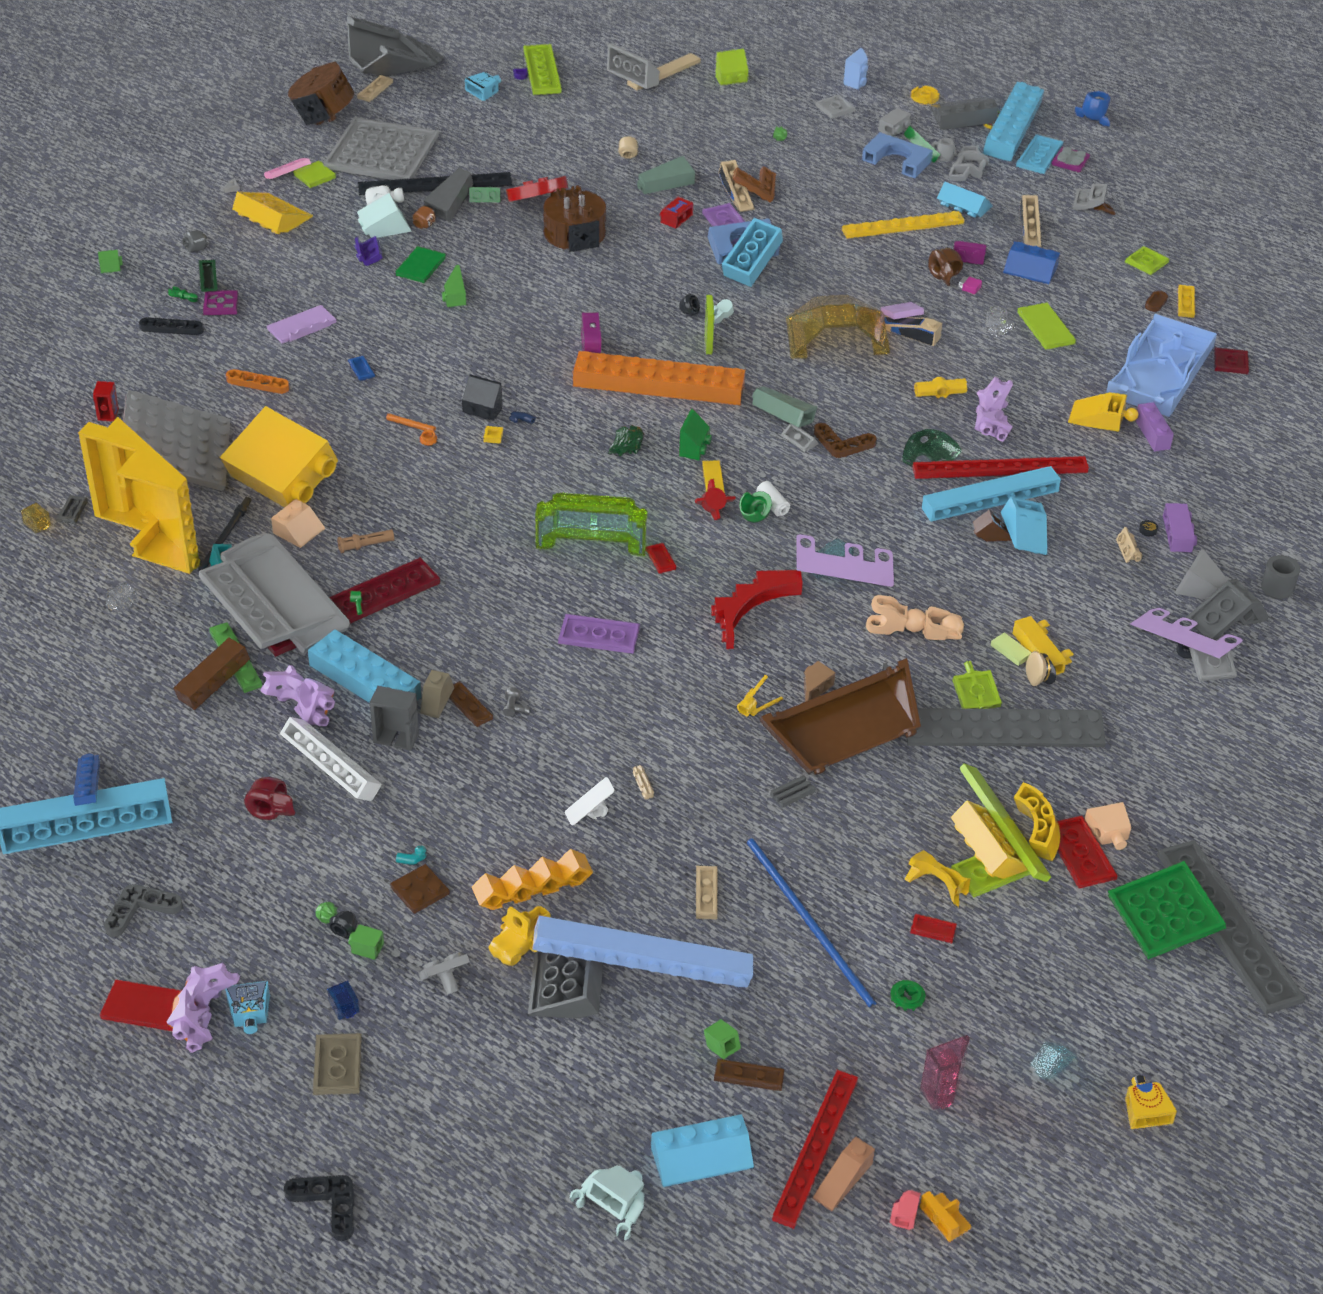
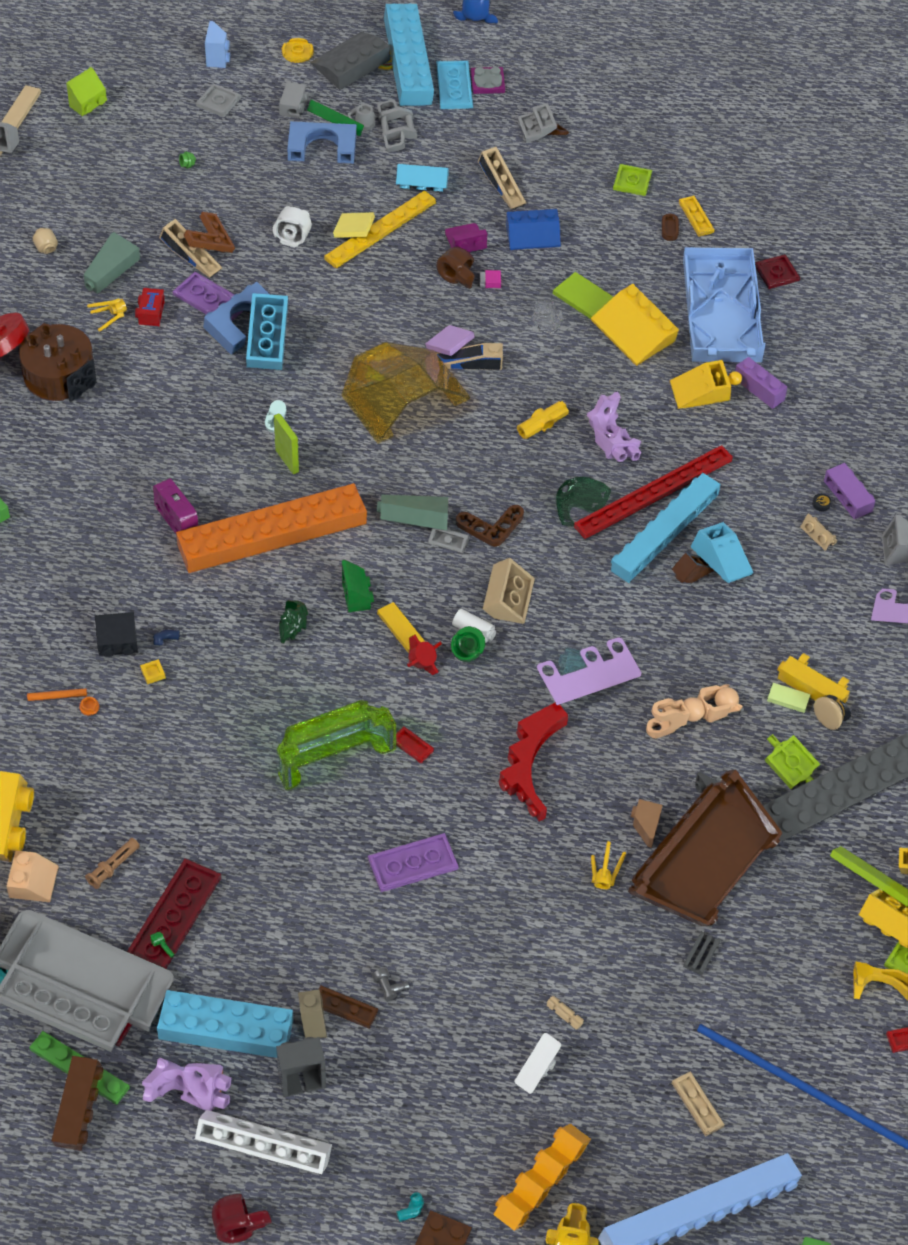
camera: 30 degrees left, 10 degrees up
(650, 204) = (115, 306): none -> yellow plant
(689, 305) = (241, 421): black cone -> none
(820, 488) = (508, 592): none -> tan slope
(828, 196) = (292, 226): none -> white brick
(881, 213) = (354, 225): none -> light yellow tile
(1070, 351) = (635, 325): none -> yellow slope

